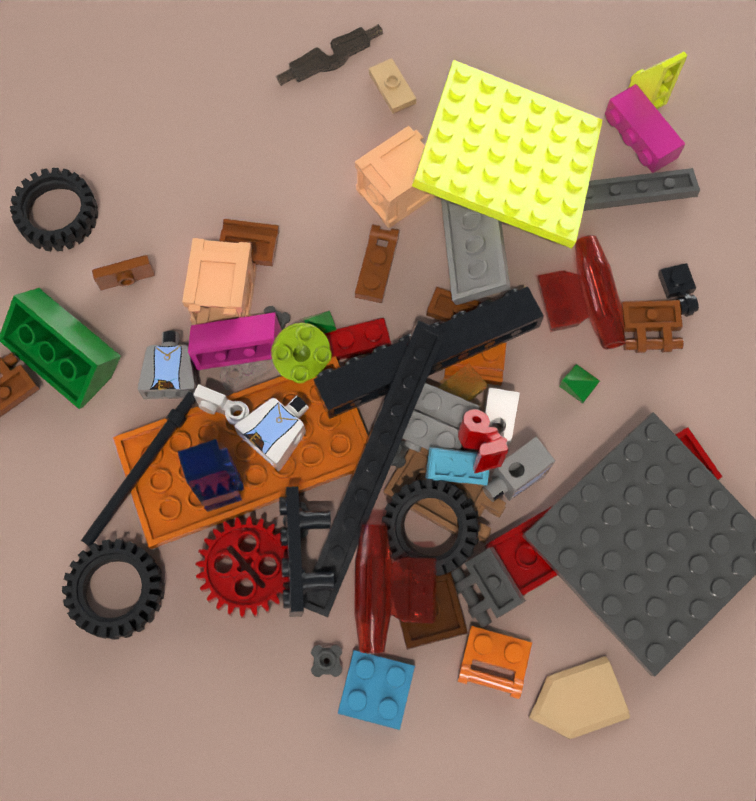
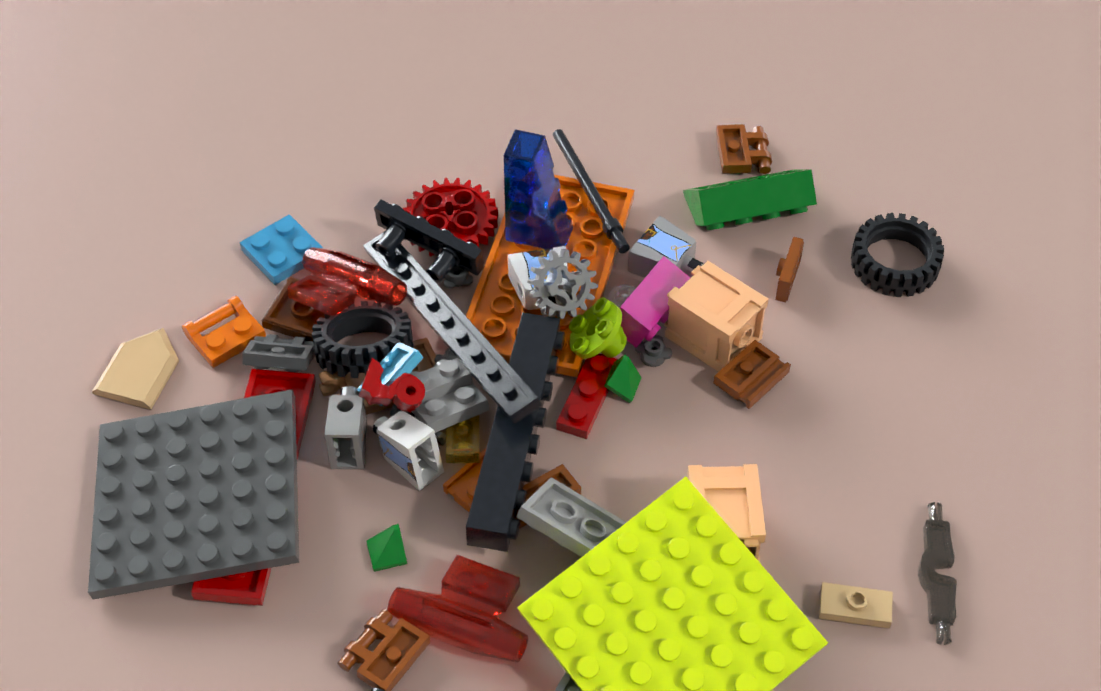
camera: 125 degrees right, 20 degrees down
(79, 578) = (497, 116): black tyre -> none
(213, 401) = (603, 255): white plate -> none
(284, 391) = (557, 269): none -> light grey gear
(333, 667) = (333, 230): dark grey plate -> none
(377, 264) = (645, 460): dark orange plate -> none

